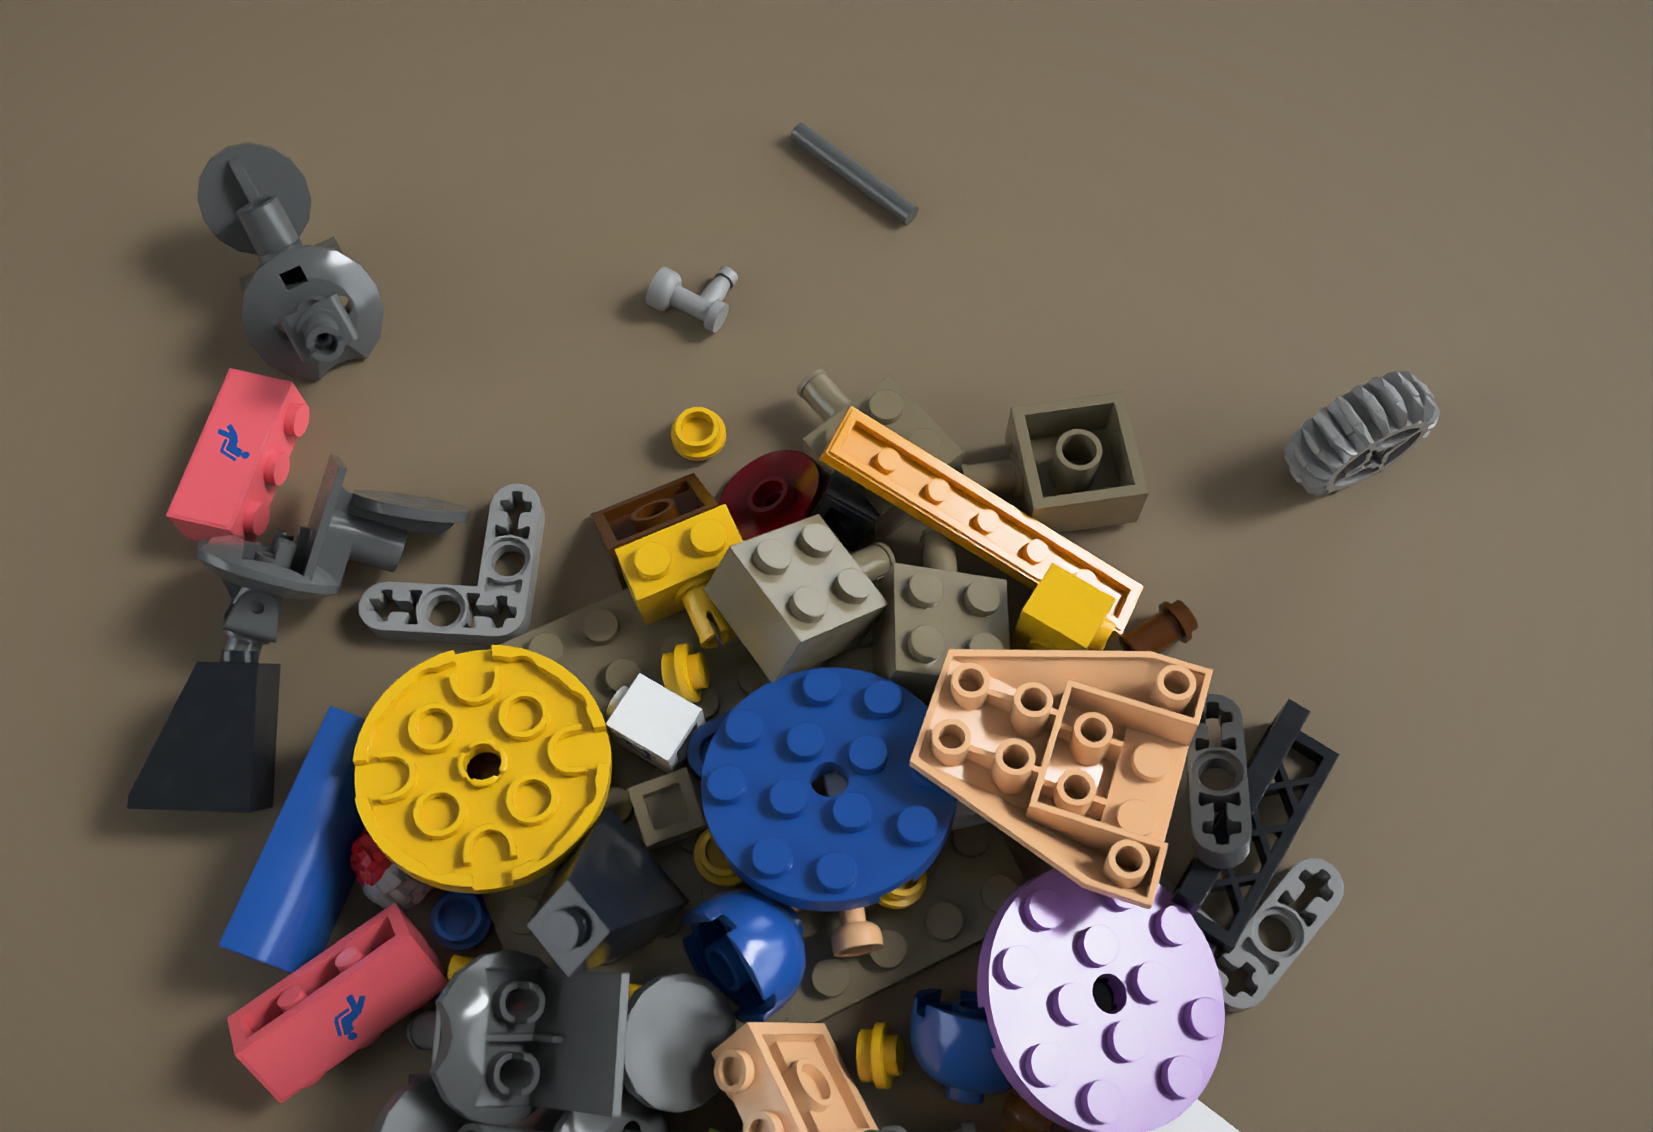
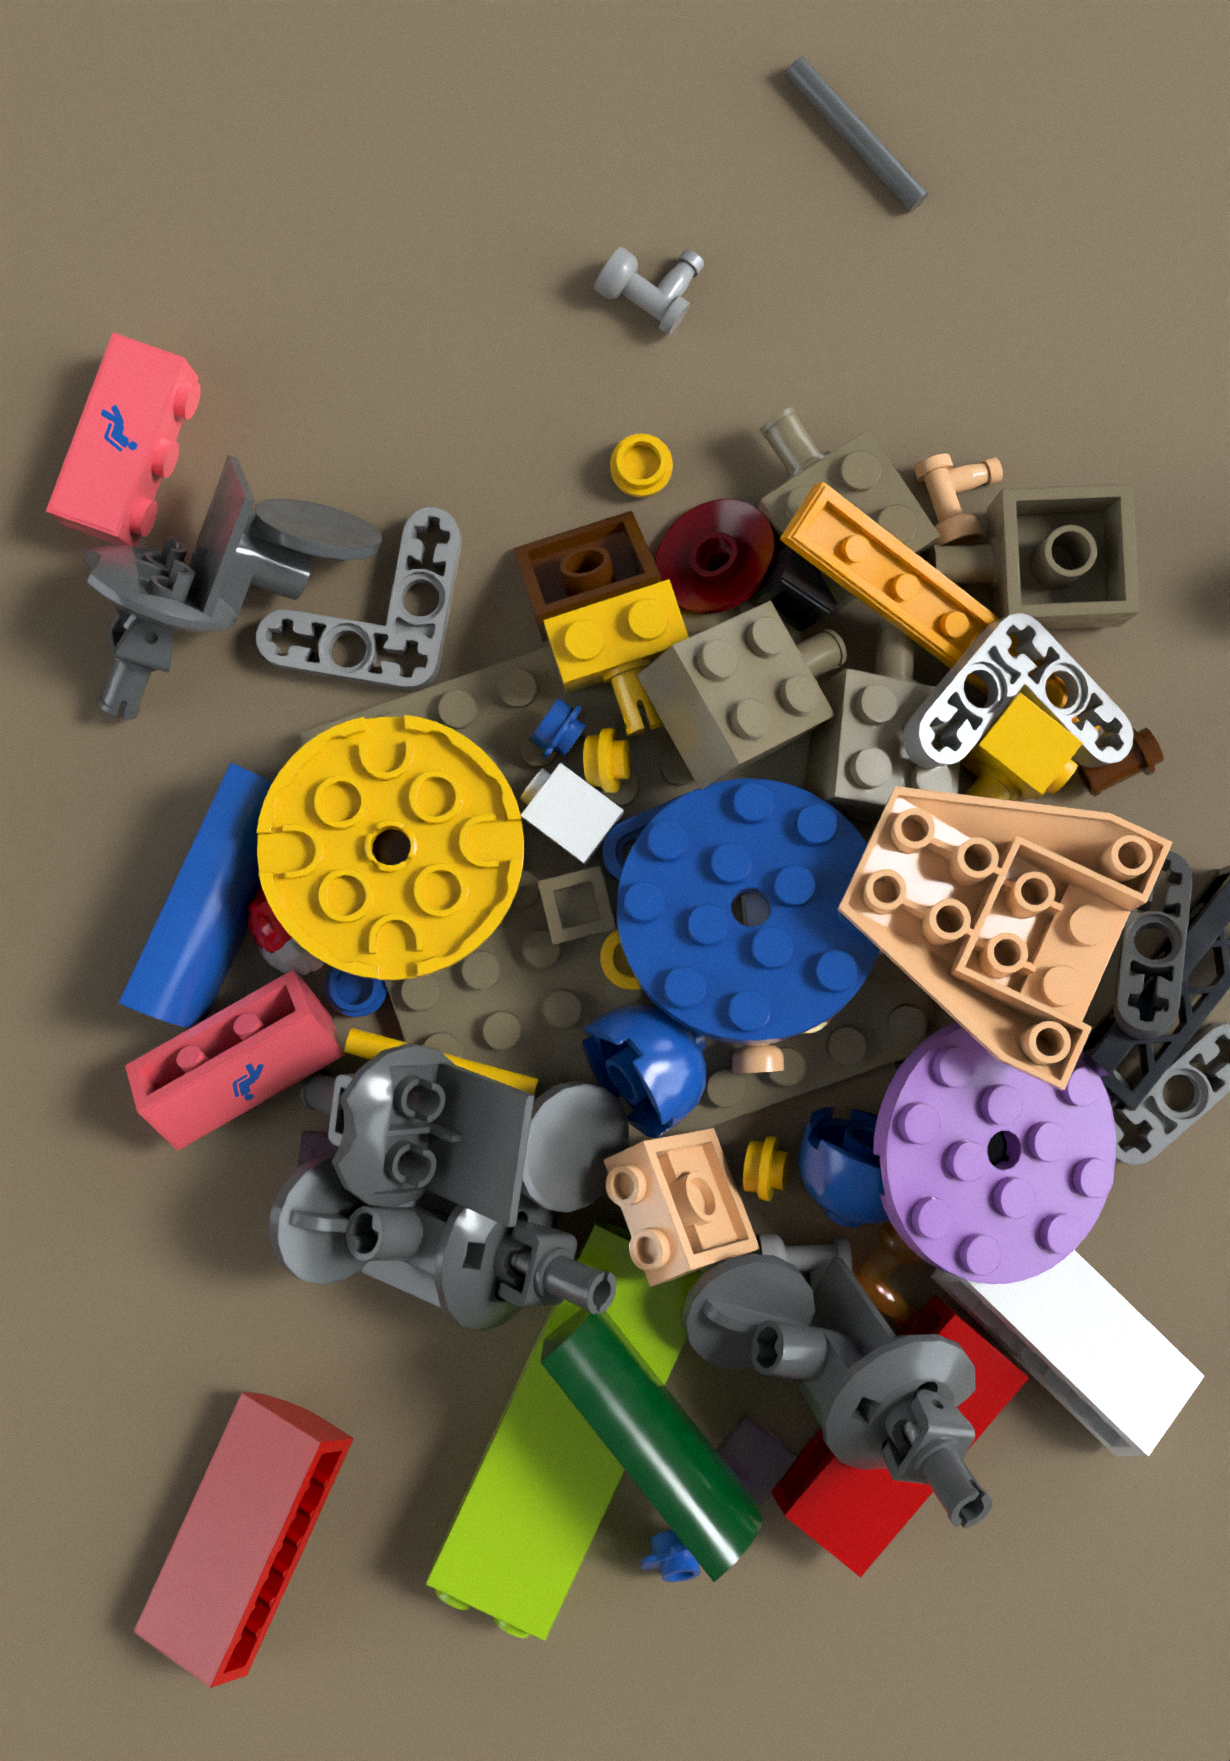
camera: 10 degrees right, 20 degrees up
(216, 741) = (109, 777): black slope -> none
(260, 207) = (188, 223): dark grey piece -> none
(604, 899) = (506, 999): black slope -> none
(638, 651) = (558, 729): none -> blue plate
(965, 422) = (944, 483): none -> light nougat piece
(1035, 557) = (1004, 679): none -> light grey beam

